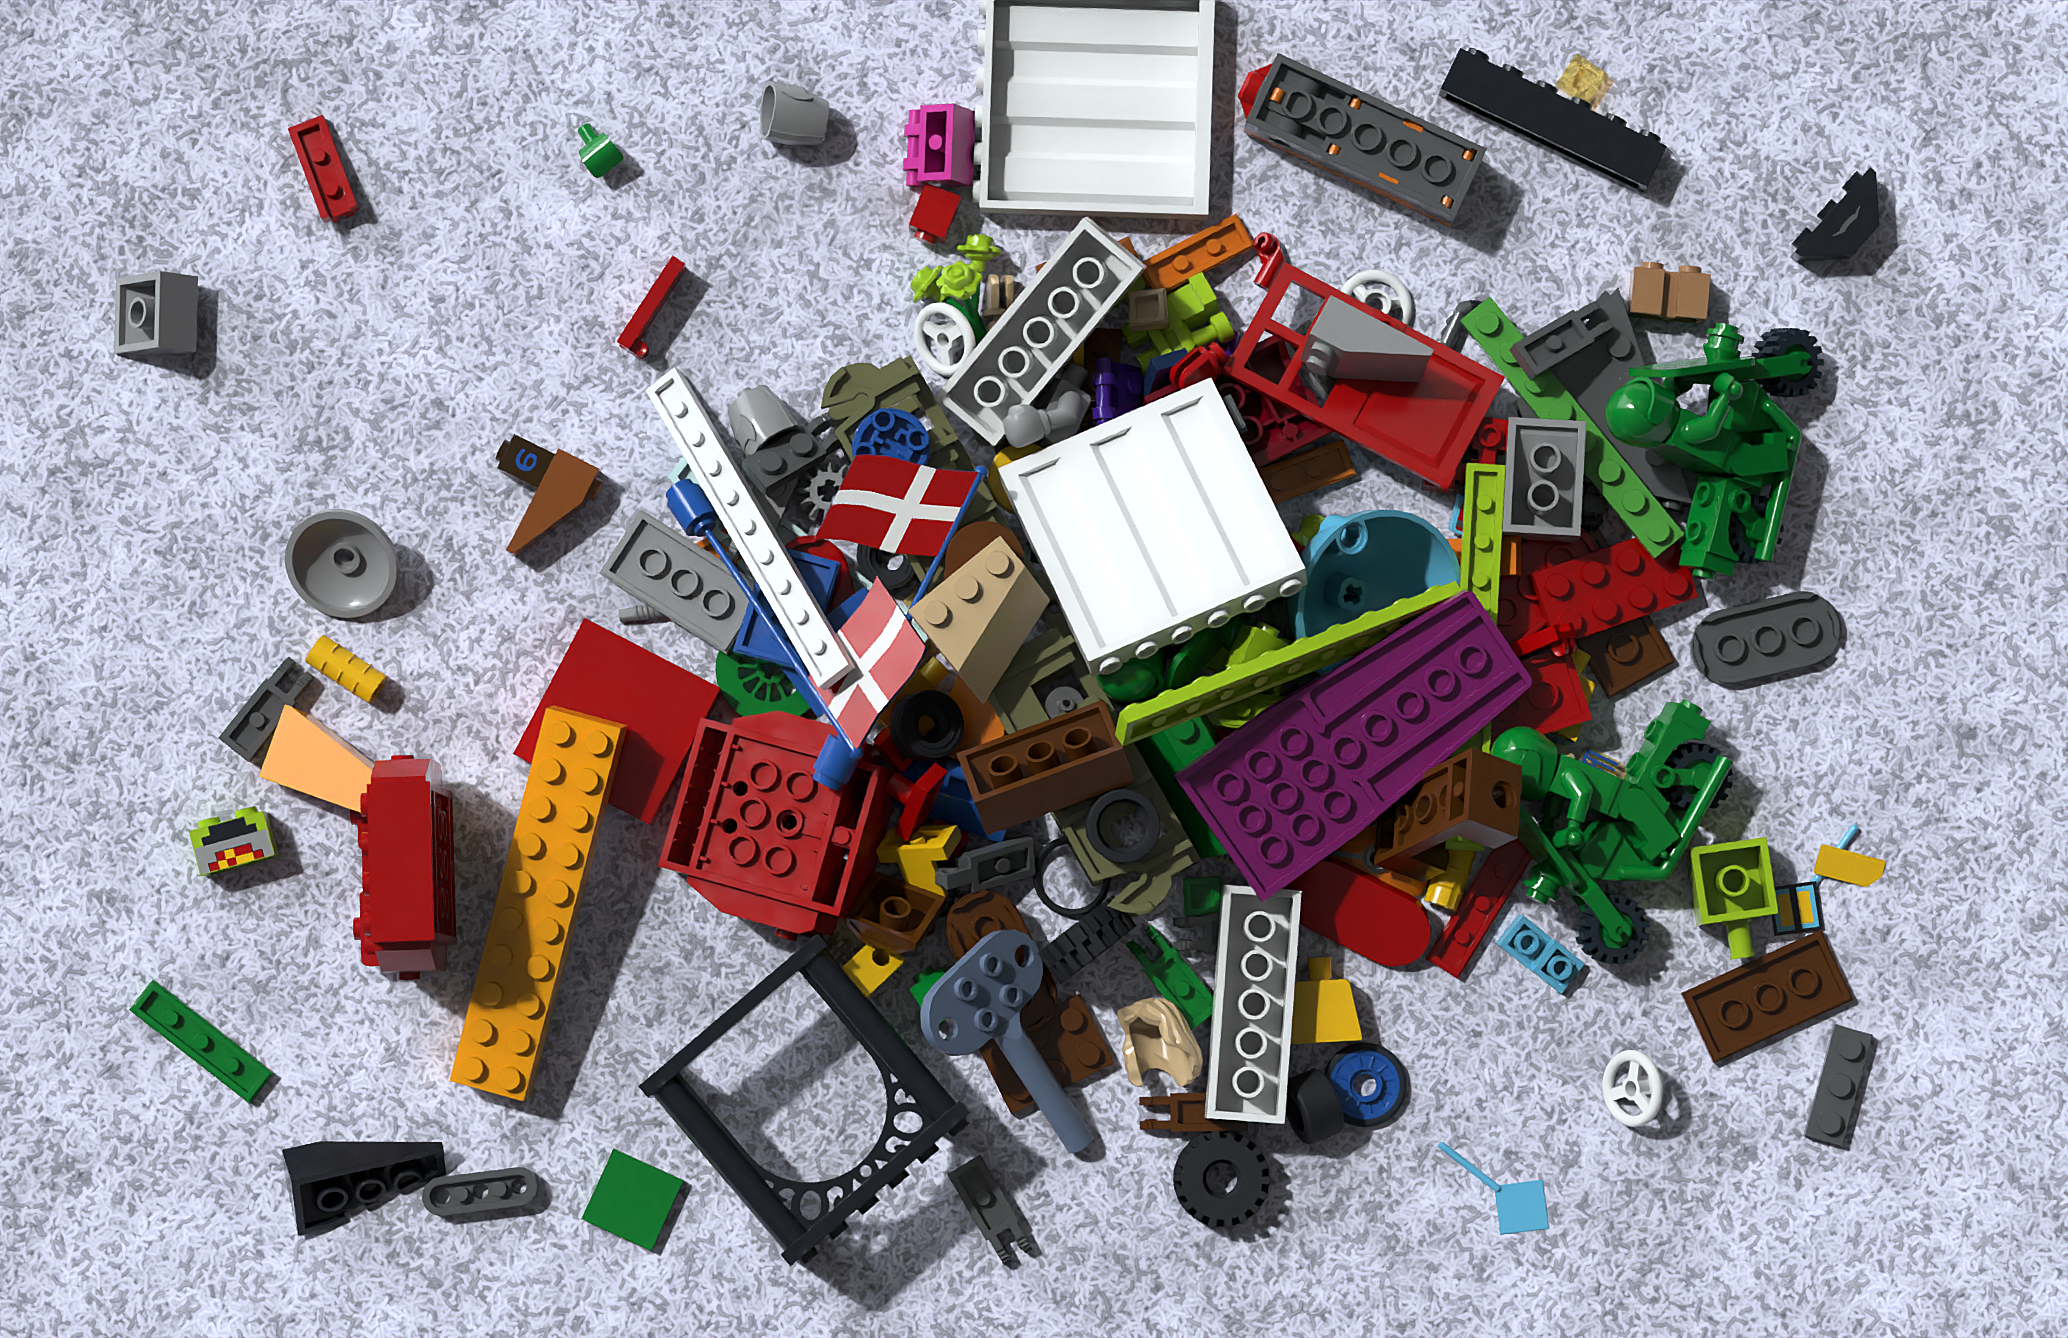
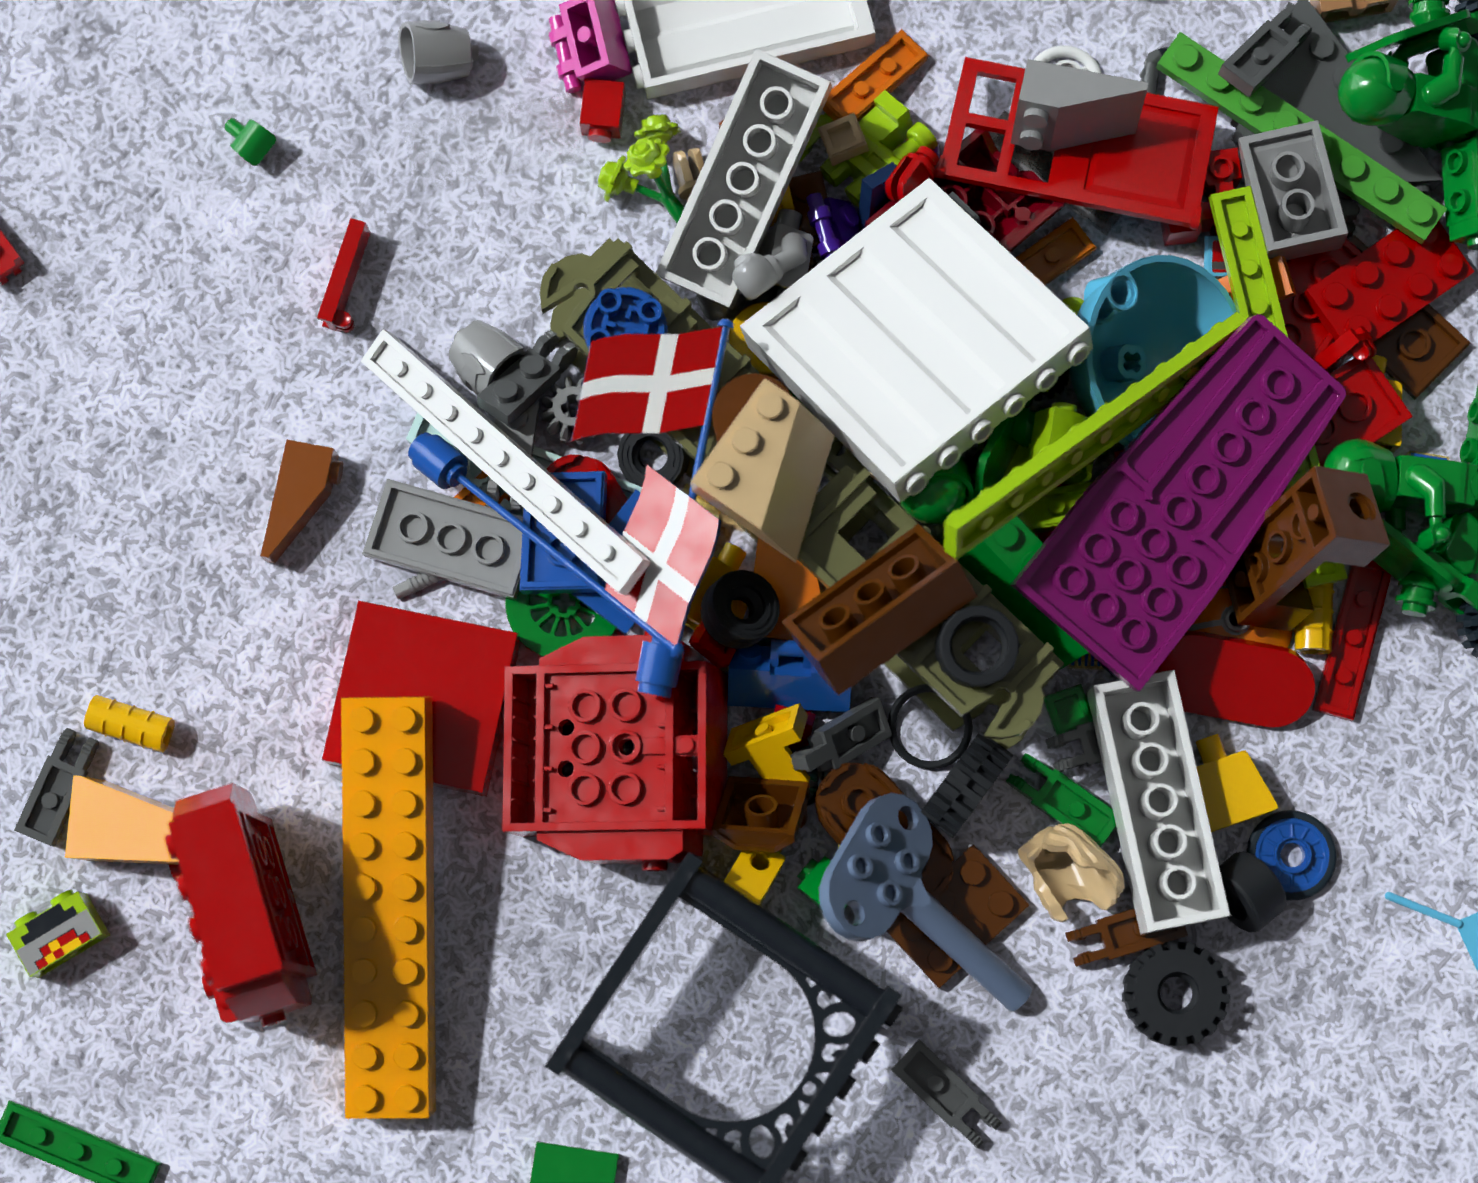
camera: 15 degrees left, 5 degrees down
(331, 579) = (83, 634): light grey dish -> none
(523, 460) = (255, 463): dark brown brick -> none
(917, 797) = (751, 686): red tile -> none
(947, 337) = (650, 225): white piece -> none
(1054, 702) = (873, 539): flat silver tile -> none
(1271, 257) = (949, 64): red arm -> none
(1540, 953) = (1428, 671): medium azure slope -> none

